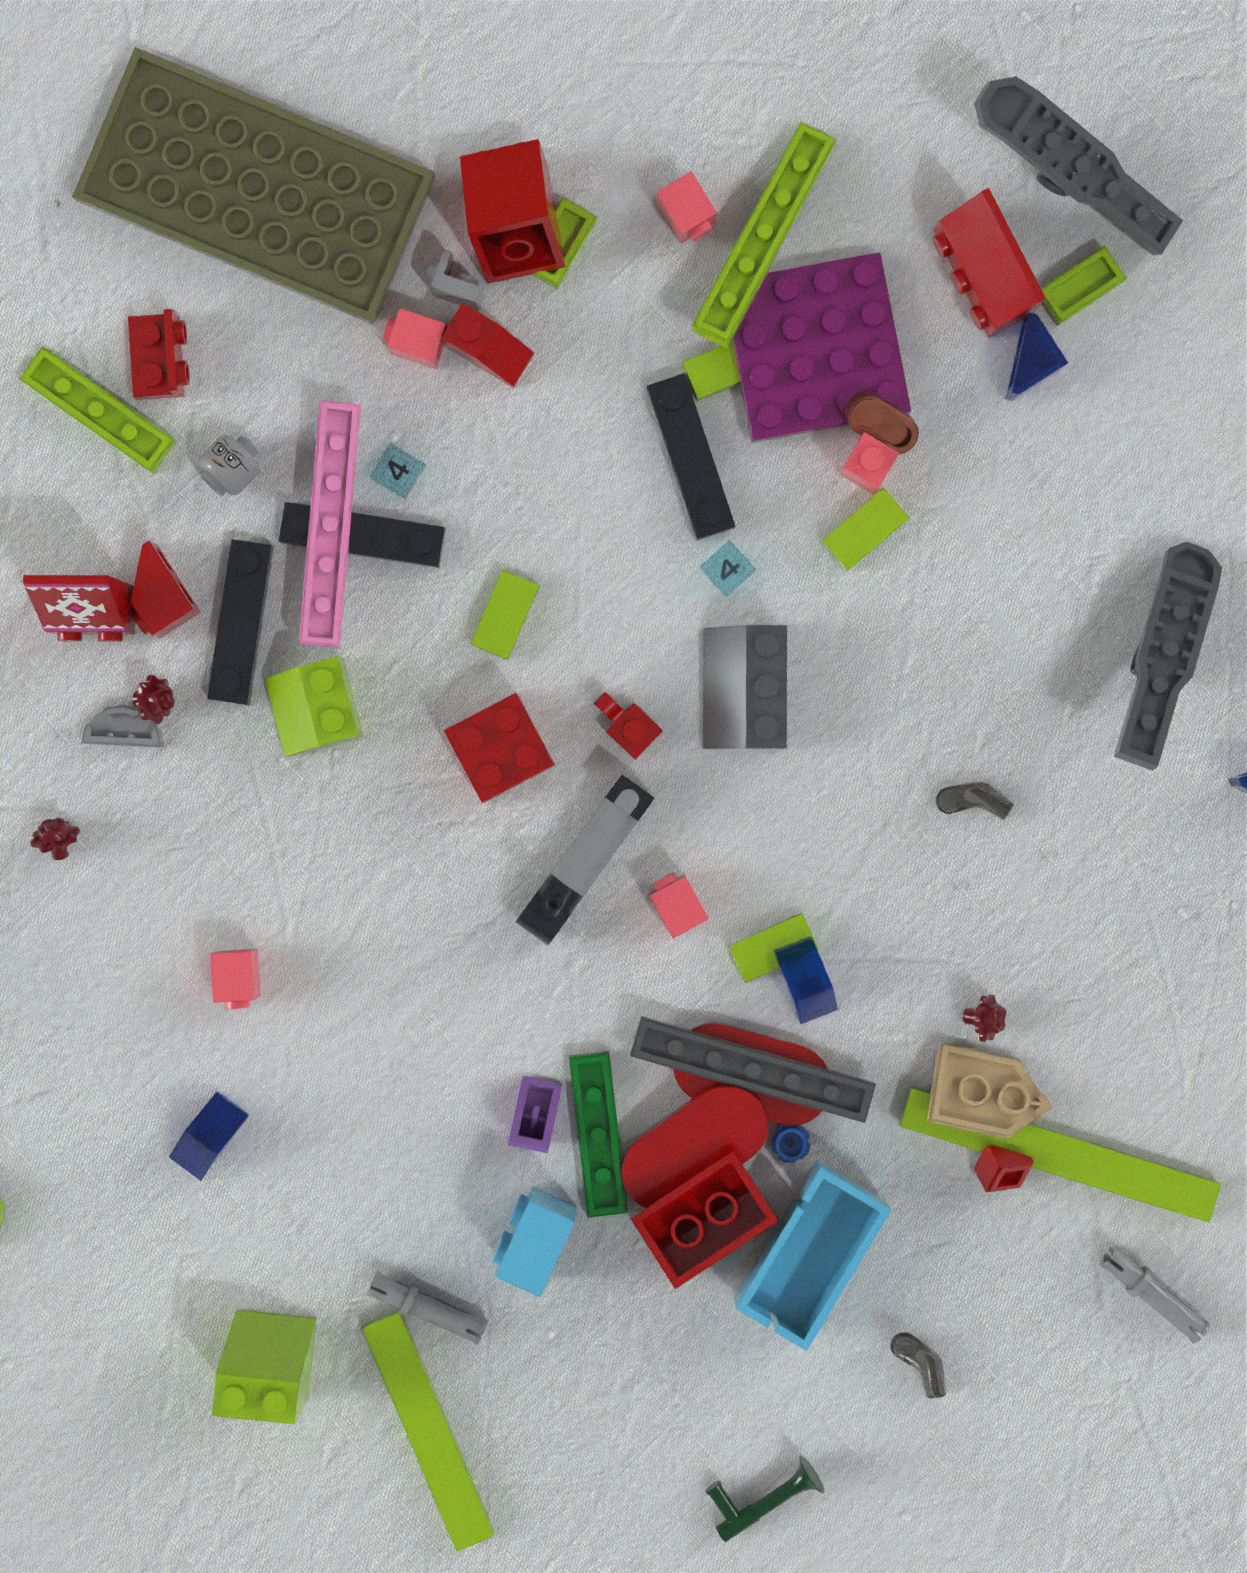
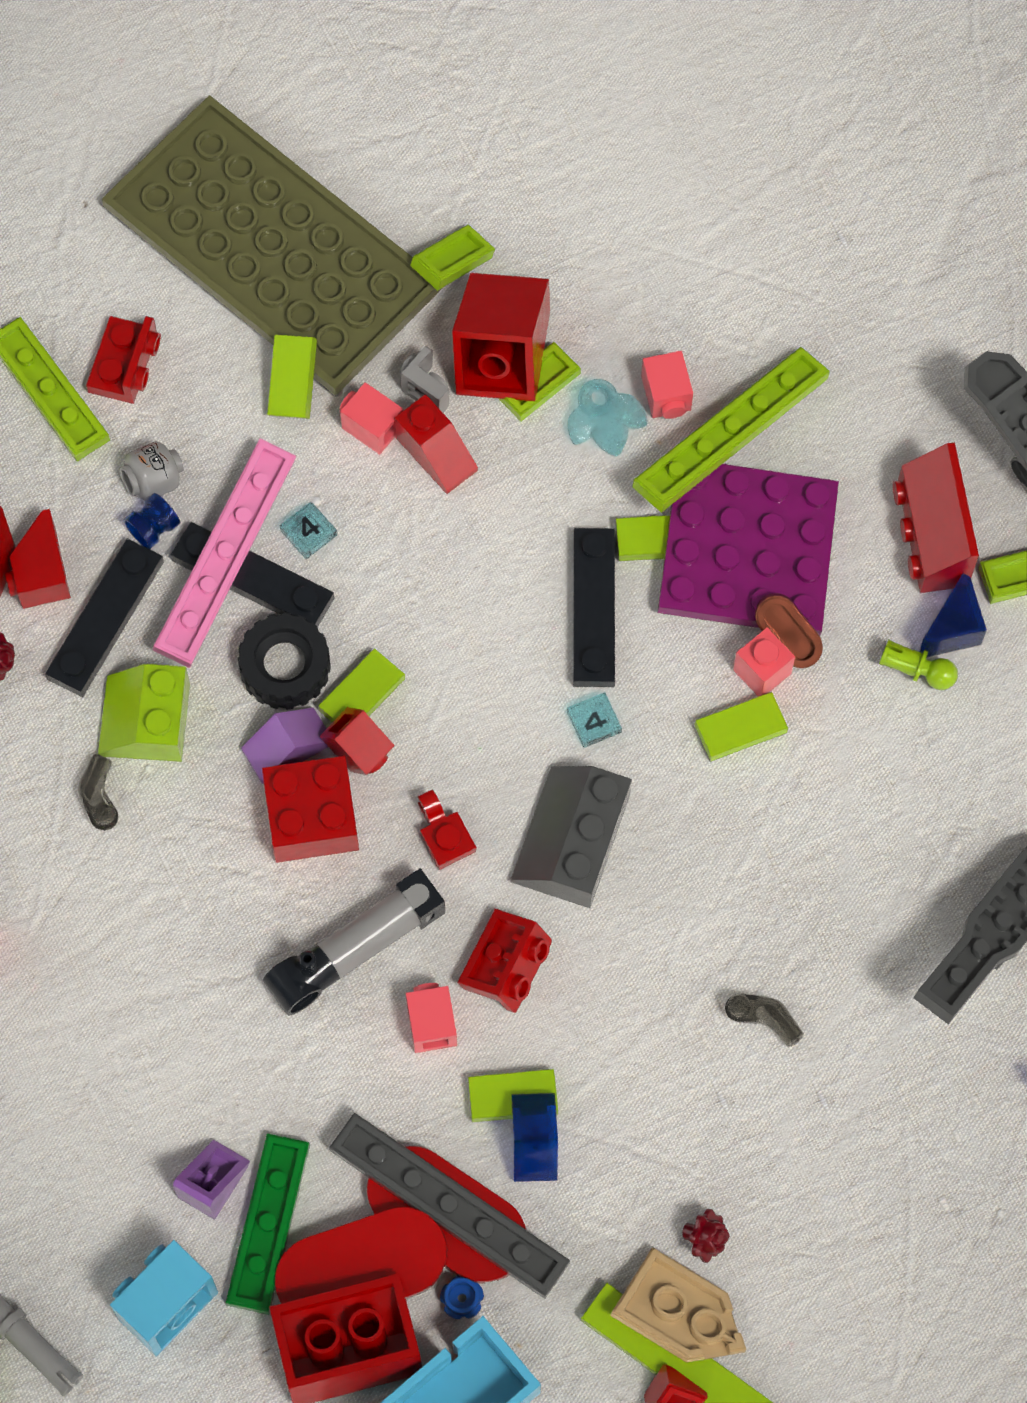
camera: 15 degrees right, 20 degrees down
(248, 515) = (151, 521): none -> clear blue wheel
(297, 800) = (93, 794): none -> clear smoke arm
(326, 322) = (292, 376): none -> lime tile
(392, 606) = (278, 630): none -> black tyre
(435, 142) = (452, 257): none -> lime tile
(454, 688) = (285, 740): none -> medium lavender slope
(520, 669) = (359, 739): none -> brick
(642, 264) = (606, 422): none -> clear light blue plate
(725, 827) = (506, 959): none -> red bracket
(1032, 415) = (939, 673): none -> lime pin

